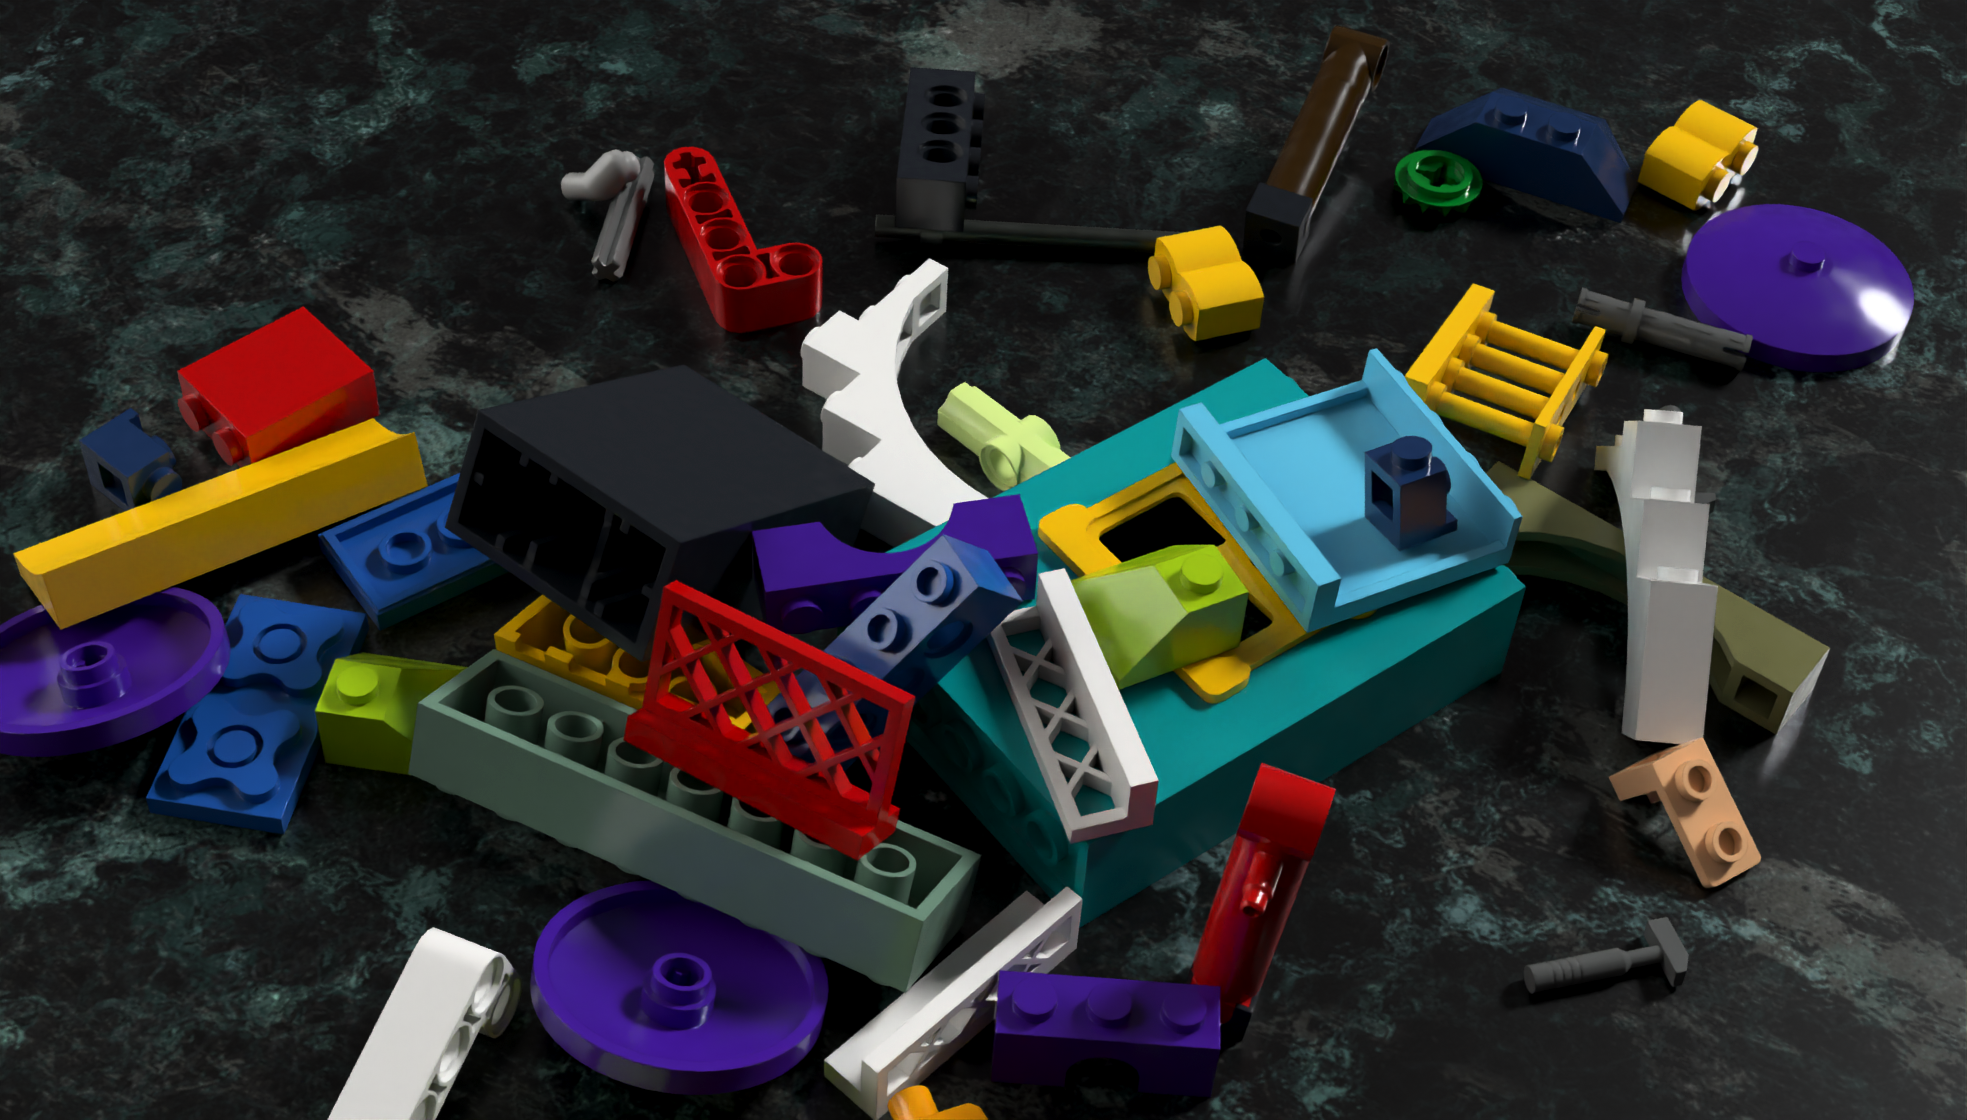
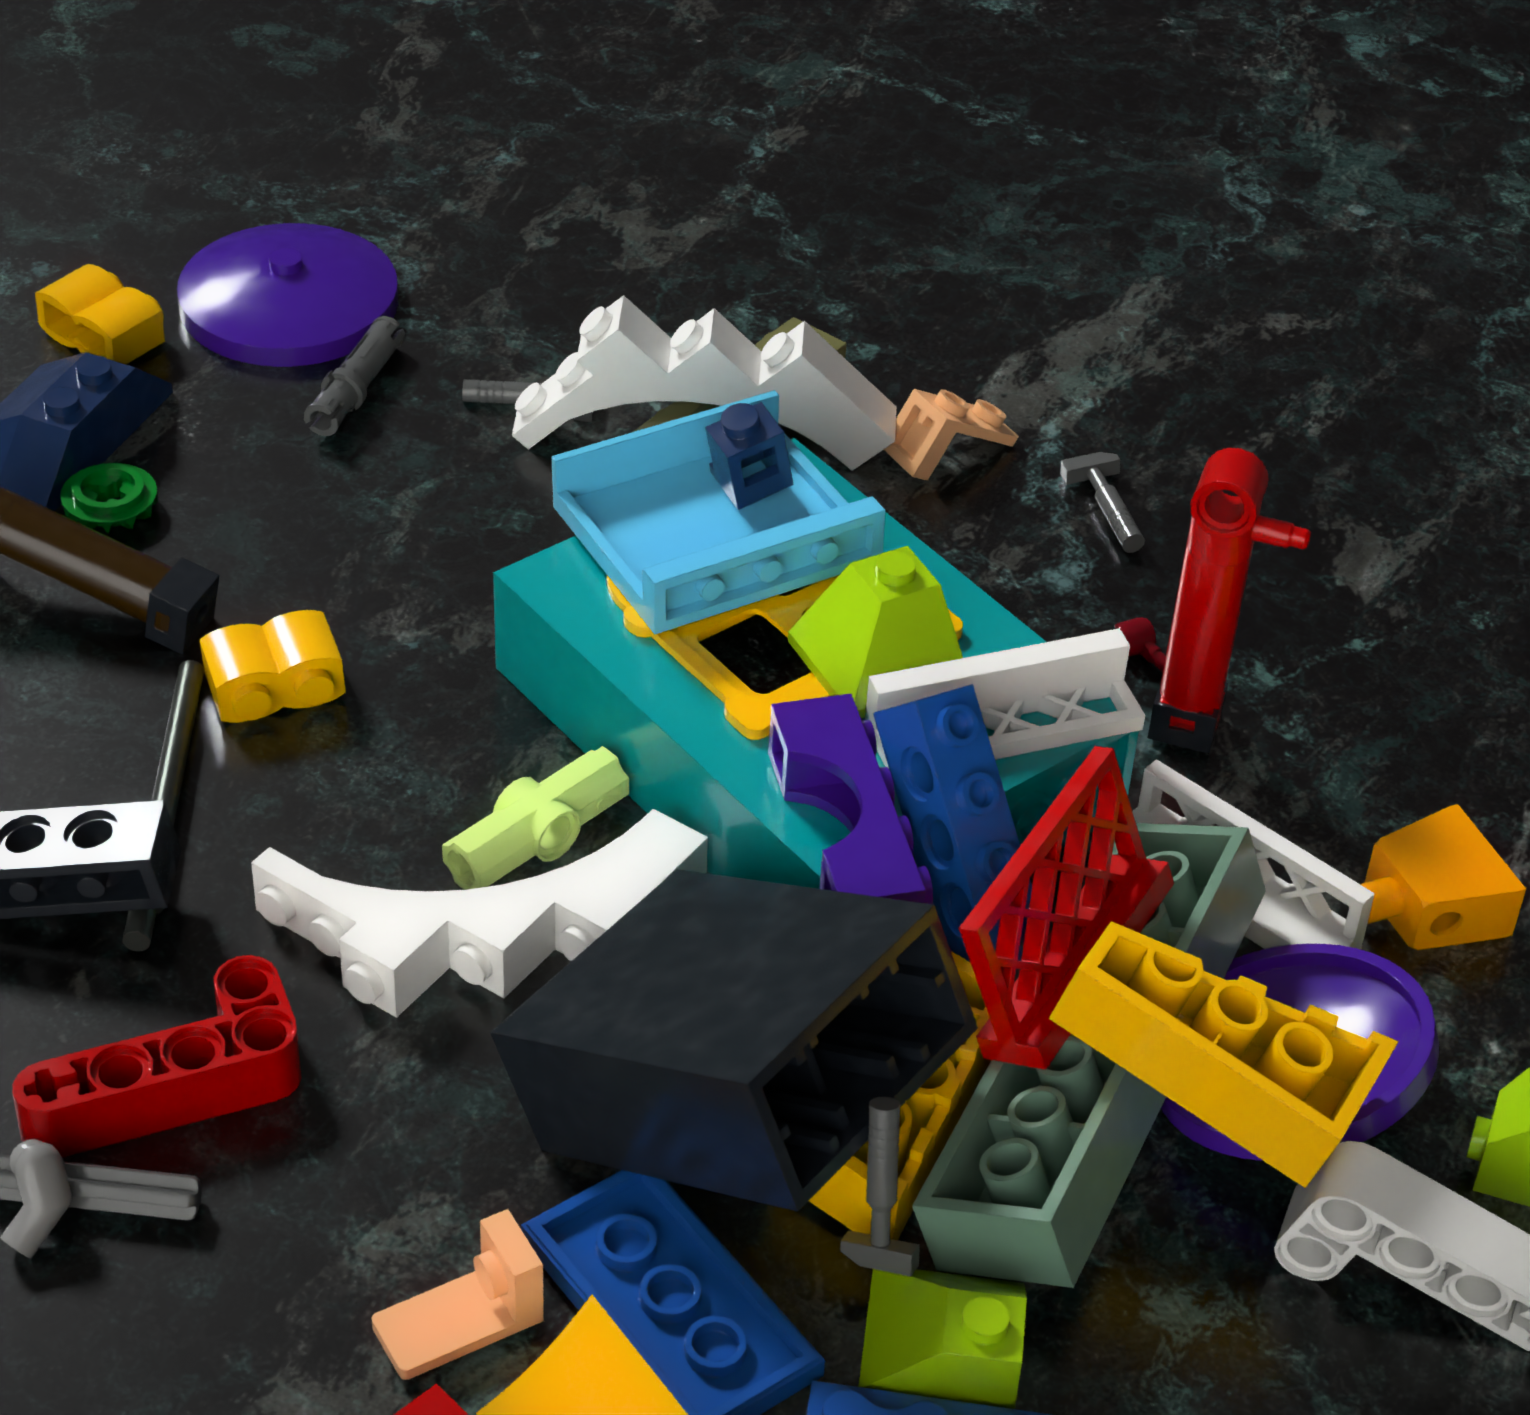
camera: 90 degrees left, 5 degrees down
(458, 394) = (471, 1310): none -> light nougat bracket
(495, 610) = (878, 1250): none -> dark grey piece
(568, 832) = (1223, 1049): none -> yellow wedge
(1155, 1027) = (1268, 759): dark purple arch -> none
(1347, 961) = (1142, 640): none -> dark red hand
(1463, 344) = (456, 494): yellow fence -> none

